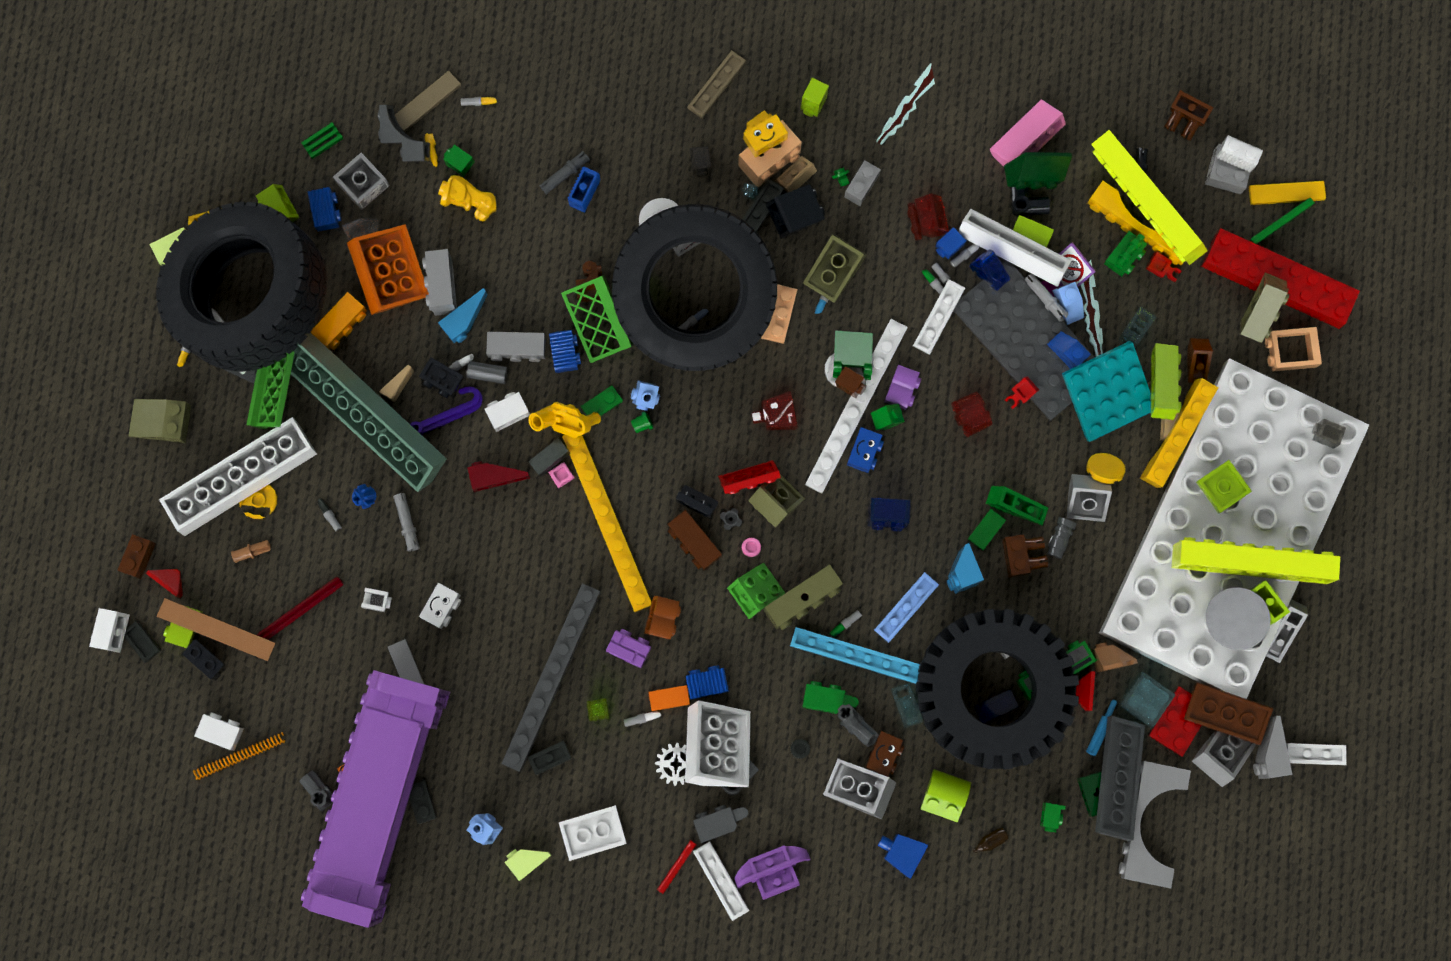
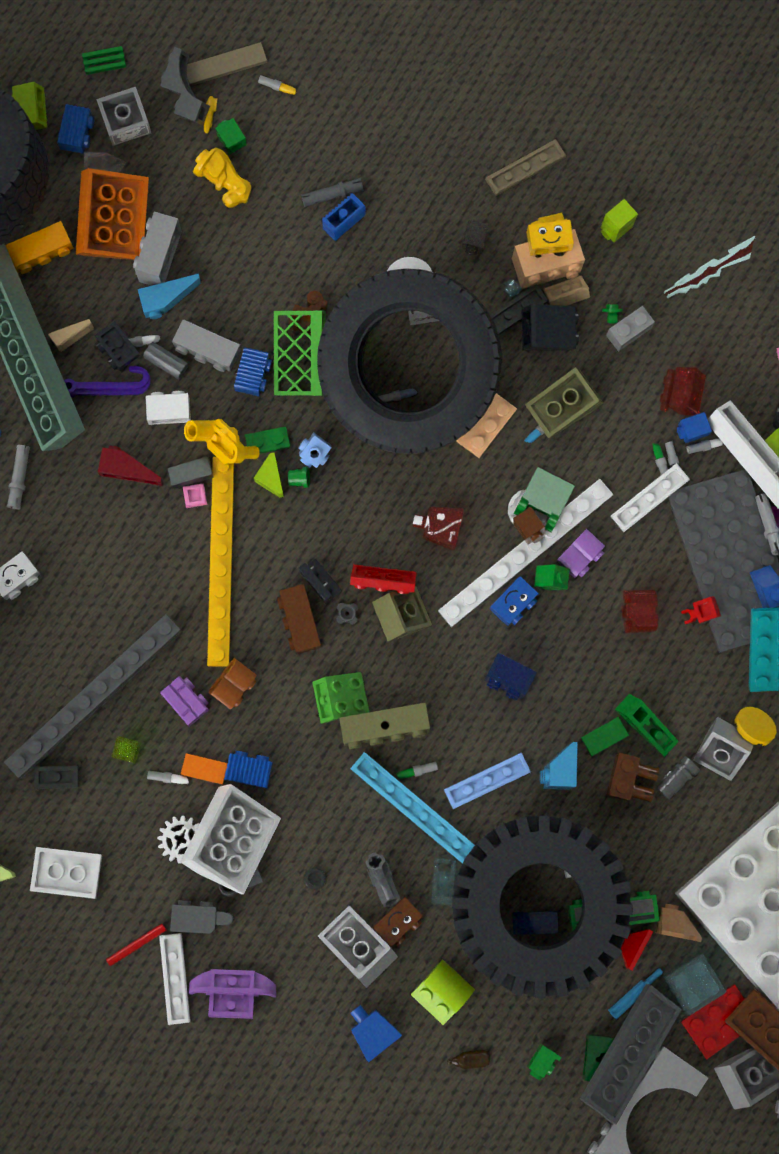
camera: 20 degrees right, 0 degrees up
(617, 433) = (269, 476): none -> lime slope
(751, 547) = (355, 651): bright pink tile -> none
(826, 698) = (363, 838): green hinge -> none
(990, 269) = (724, 471): clear blue pin -> none

